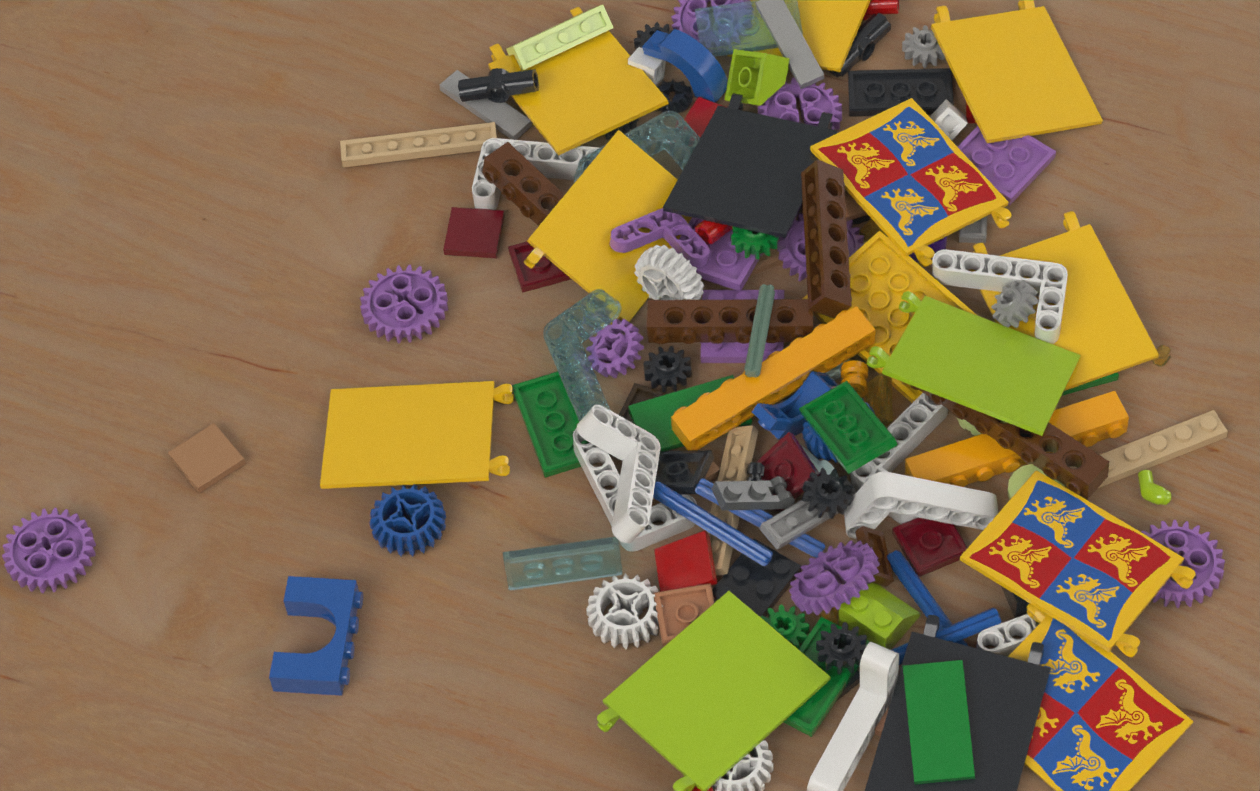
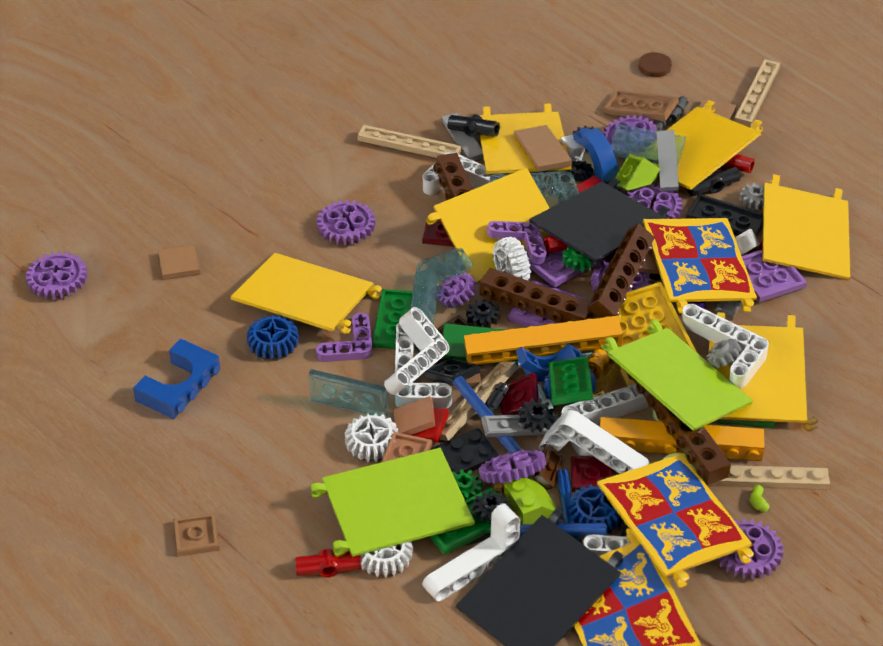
camera: 20 degrees right, 10 degrees down
(474, 232) = (413, 200): dark red tile -> none
(524, 479) = (358, 343): none -> medium lavender beam
(561, 37) = (528, 113): yellowish green fence -> none
(613, 85) = (542, 148): none -> medium nougat tile
(666, 559) = (415, 416): none -> nougat tile
(712, 524) = (453, 406): blue axle -> none
(753, 494) = (488, 398): dark grey plate -> none
(759, 331) = (547, 307): sand green axle -> none
(938, 722) = (528, 576): green tile -> none
(950, 593) = (592, 506): none -> blue gear

